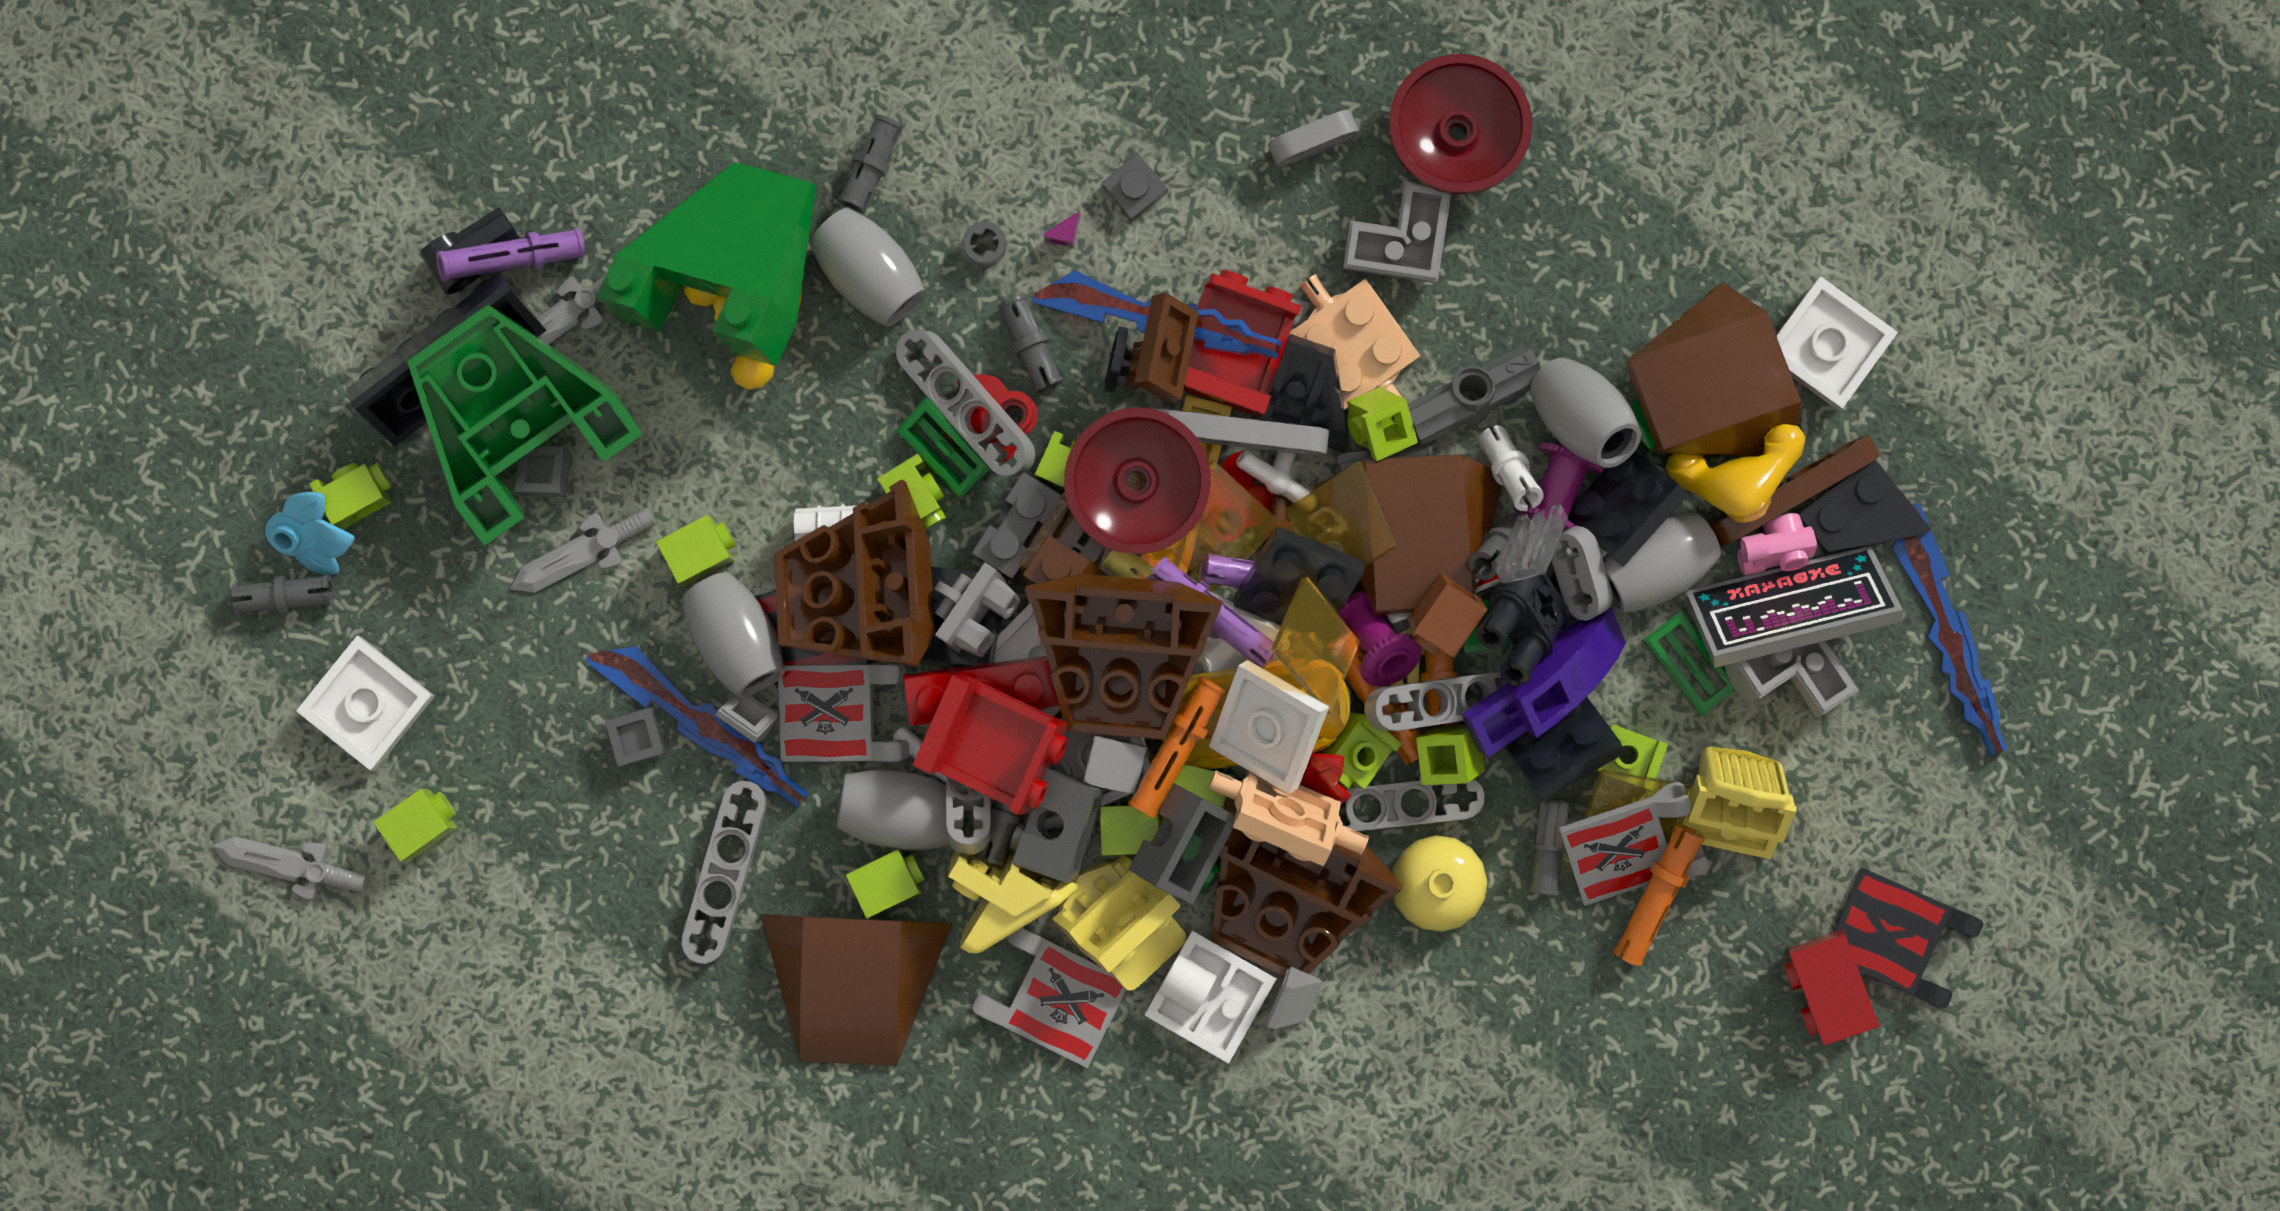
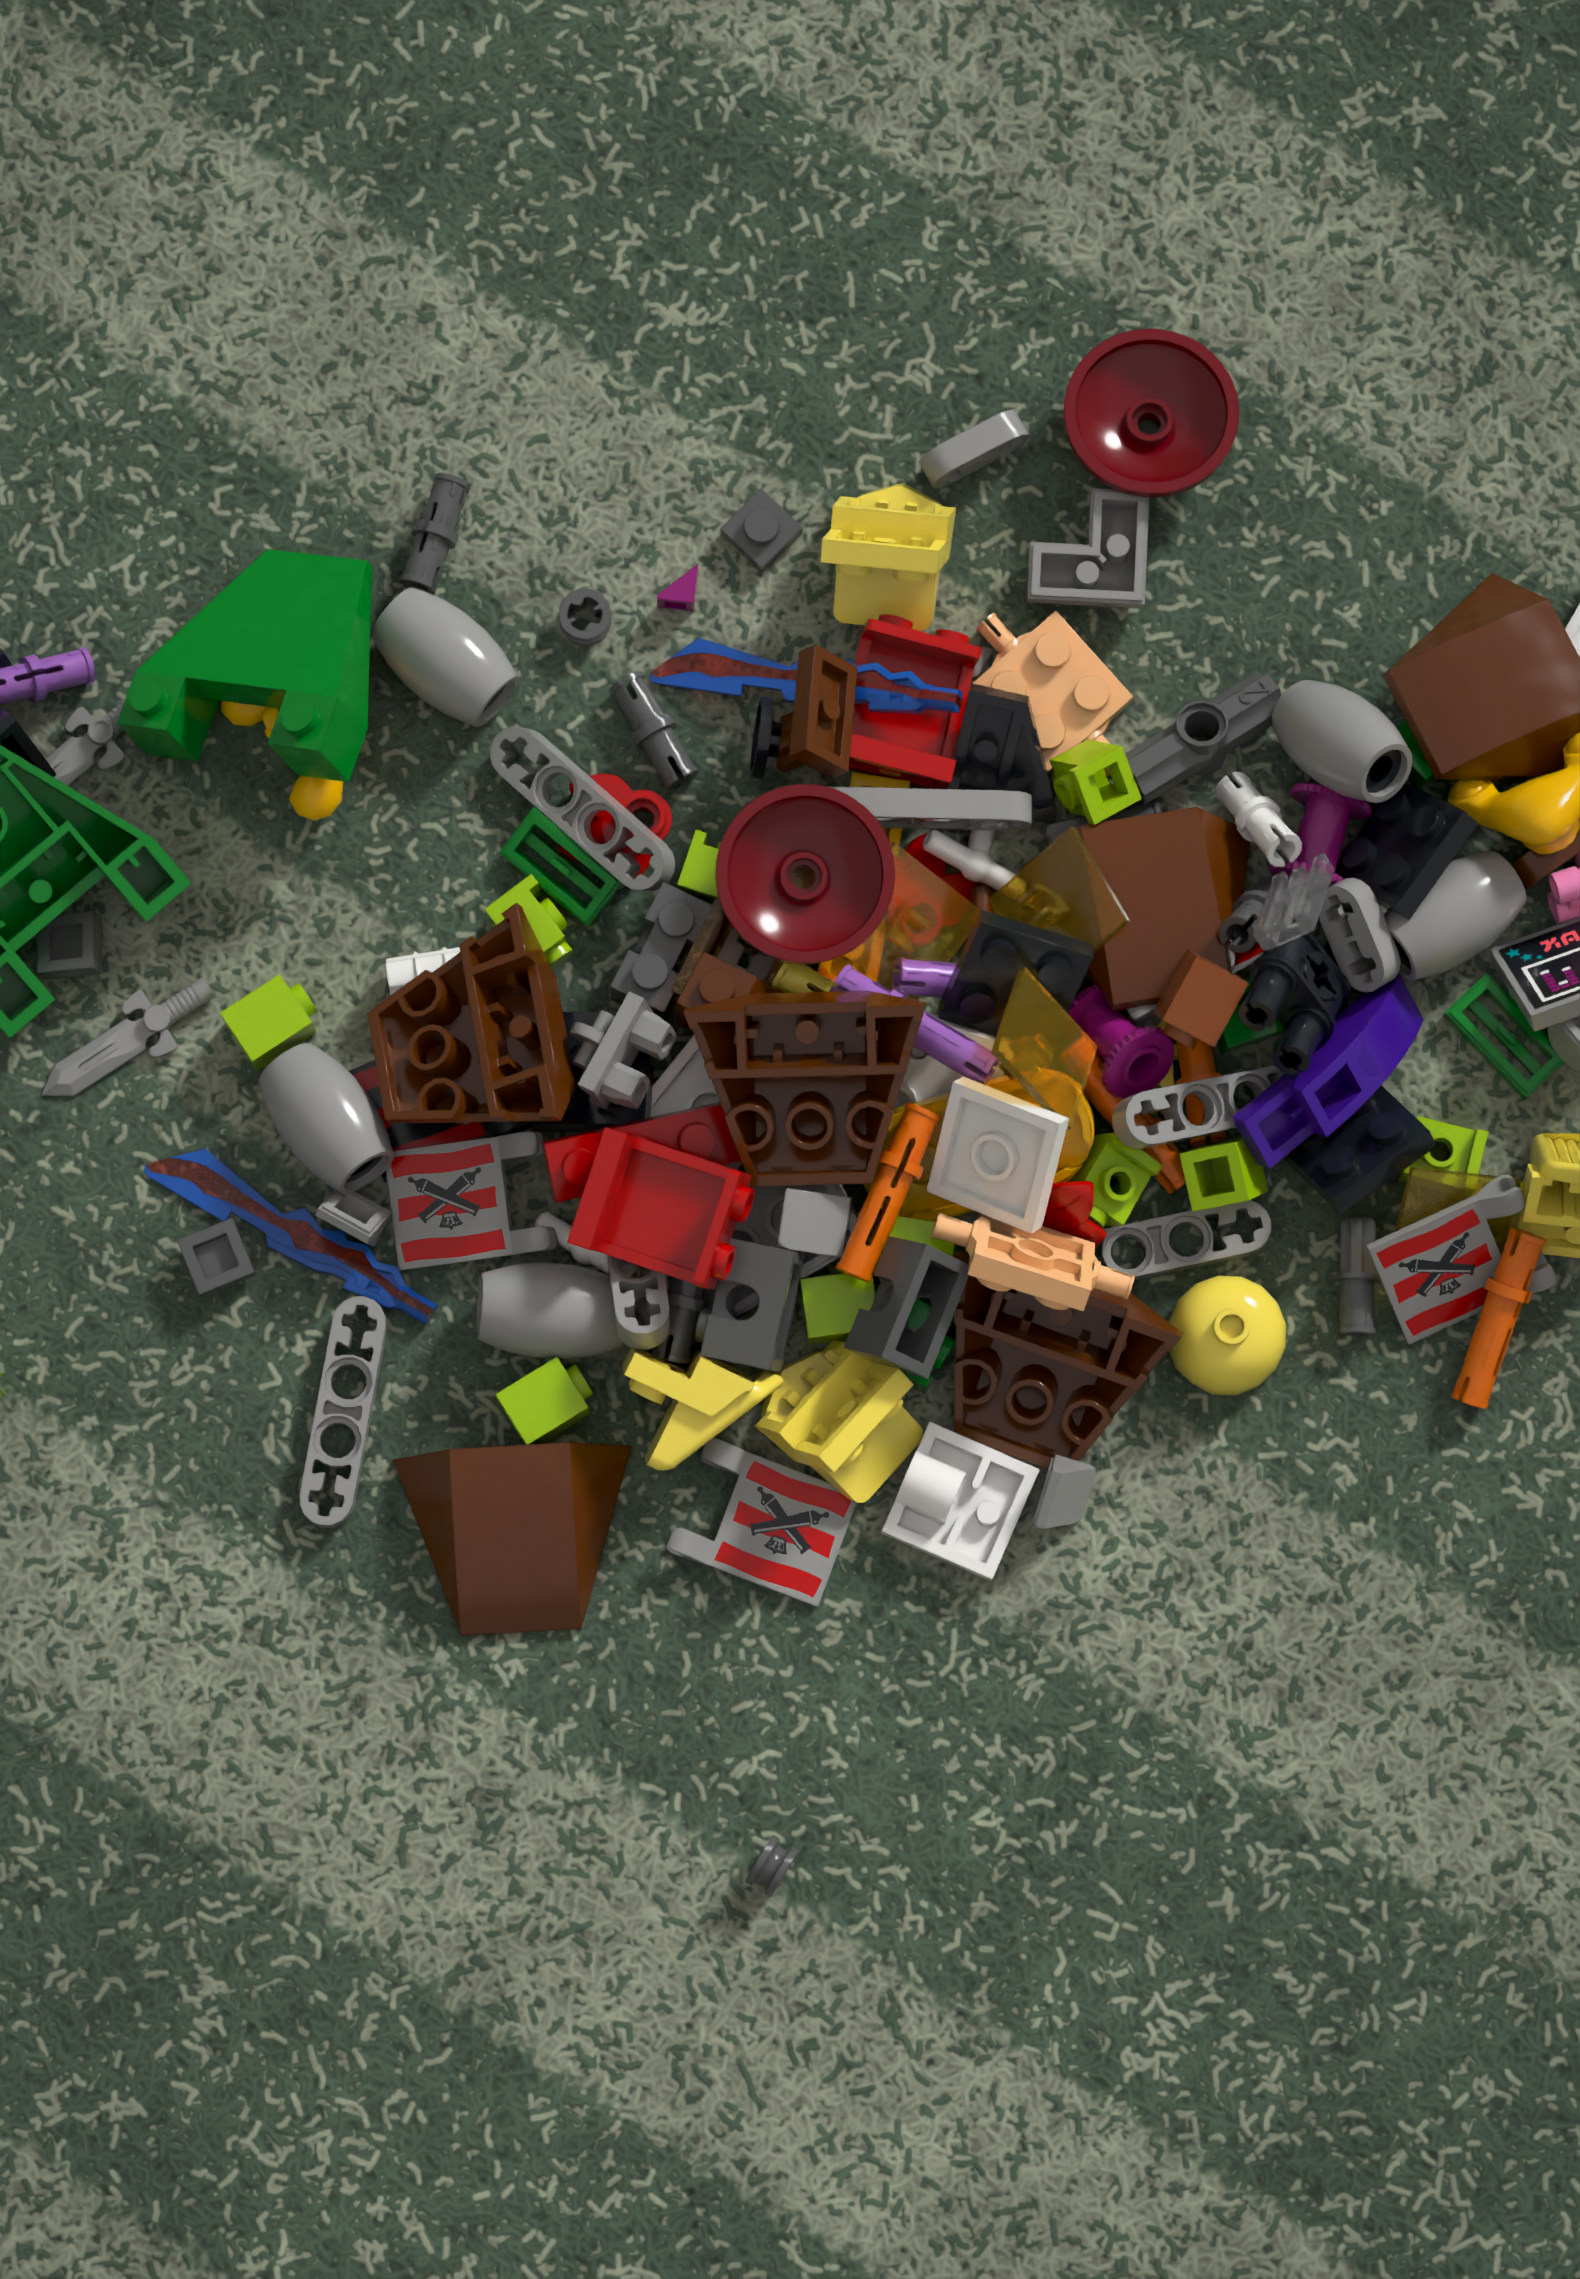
camera: 10 degrees left, 5 degrees down
(1234, 218) = (888, 554): none -> light yellow piece

